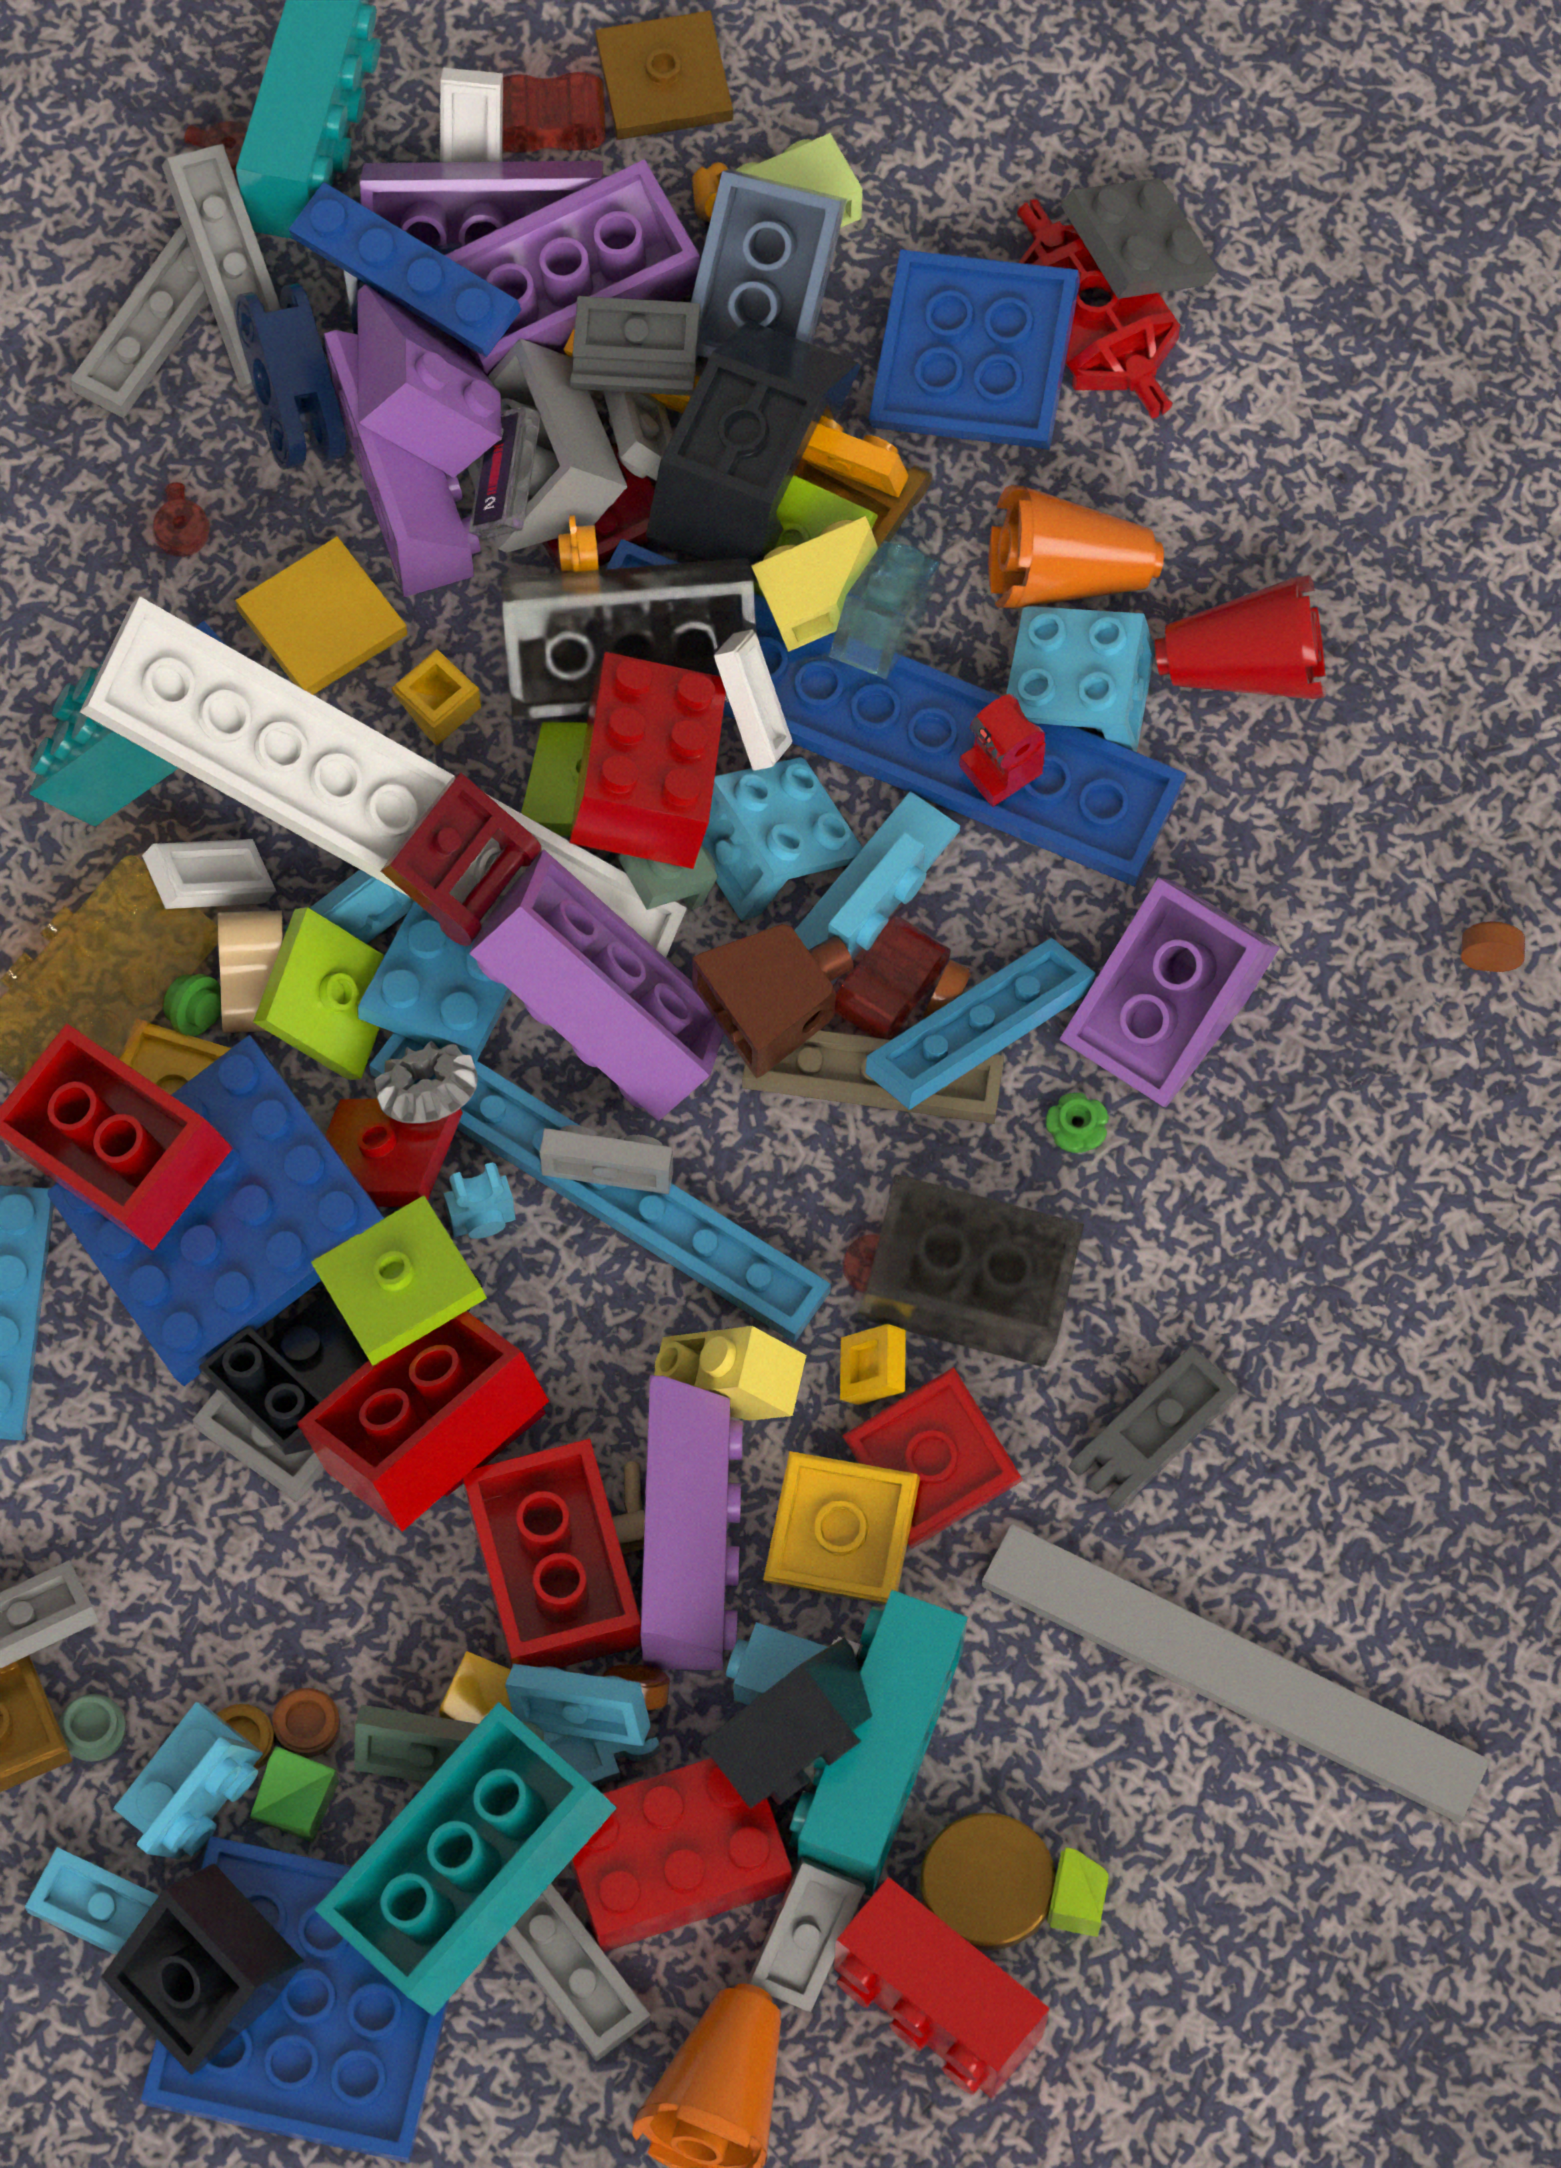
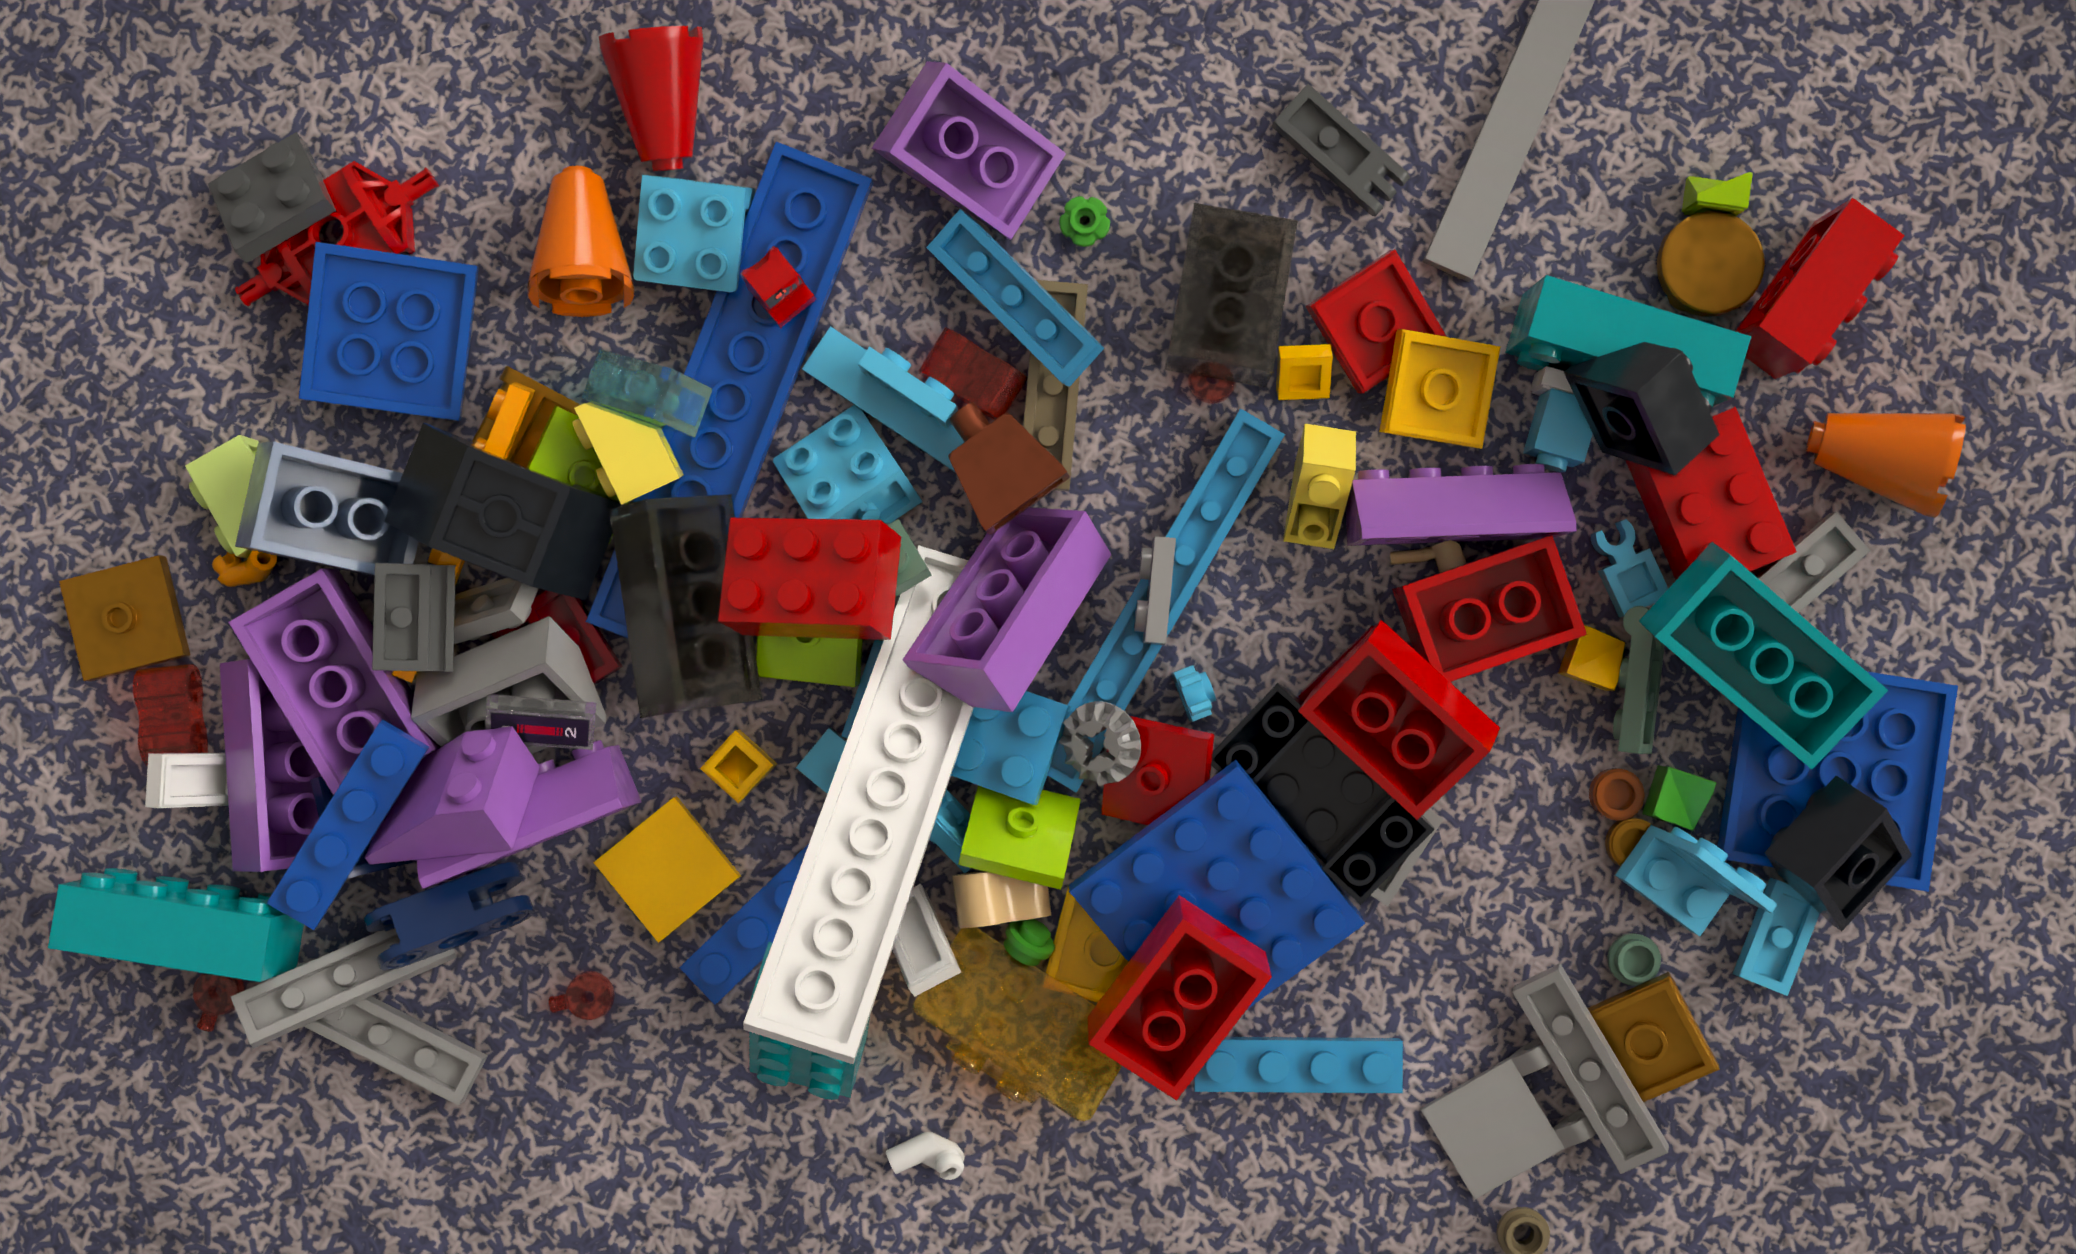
camera: 90 degrees left, 20 degrees up
(398, 1280) = (1292, 748): lime plate -> none
(444, 848) = (918, 738): dark red plate -> none
(578, 548) = (606, 654): light orange plate -> none
(579, 1704) = (1606, 602): medium azure plate -> none
(652, 1680) = (1583, 546): dark orange tile -> none
(753, 699) = (742, 497): white tile -> none
(805, 1934) = (1774, 400): light grey plate -> none
(949, 986) = (981, 328): dark orange tile -> none

